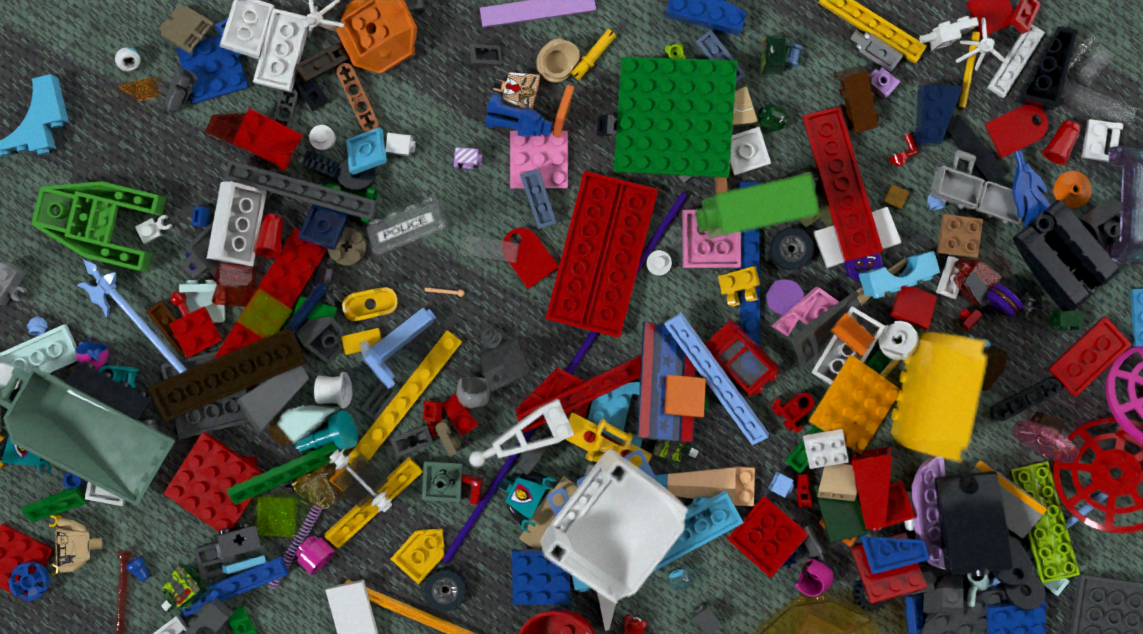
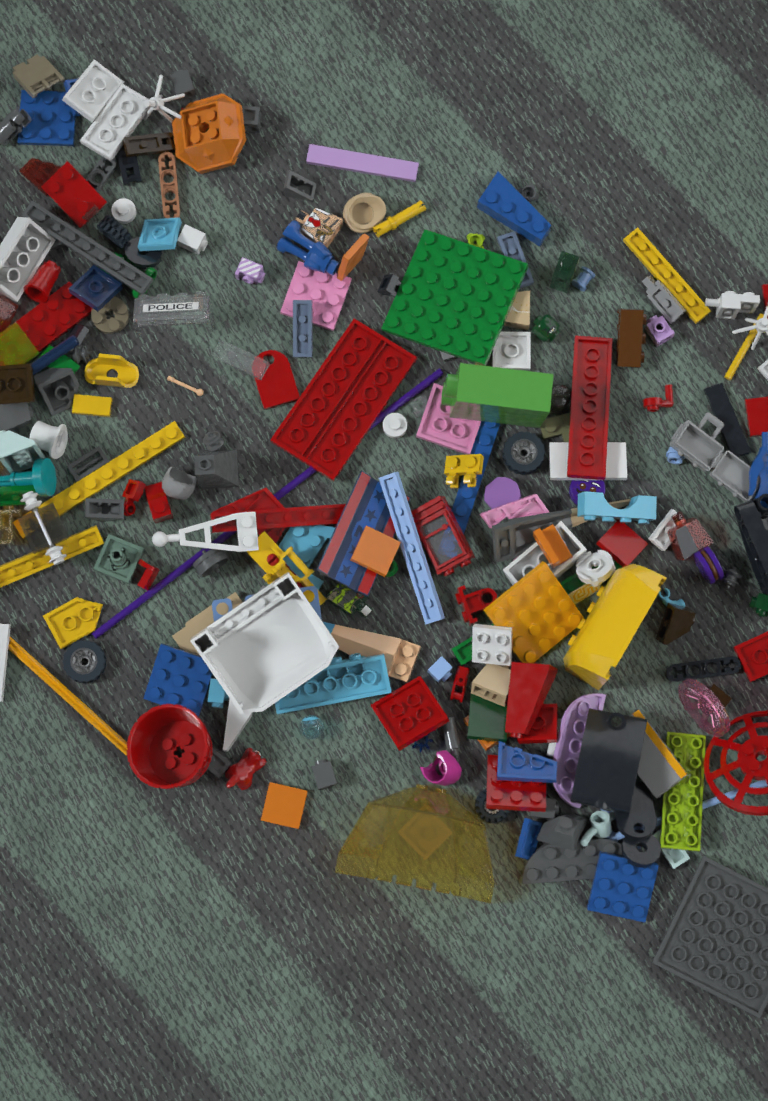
camera: 15 degrees right, 10 degrees down
(393, 342) = (125, 414): light blue piece -> none
(451, 442) = (140, 521): dark tan plate -> none
(525, 496) = (192, 597): torso -> none
(895, 196) = (639, 439): pearl gold tile -> none
(934, 112) = (698, 373): dark blue wedge -> none
(959, 236) = (684, 490): medium nougat plate -> none
(969, 319) = (673, 575): red tile -> none

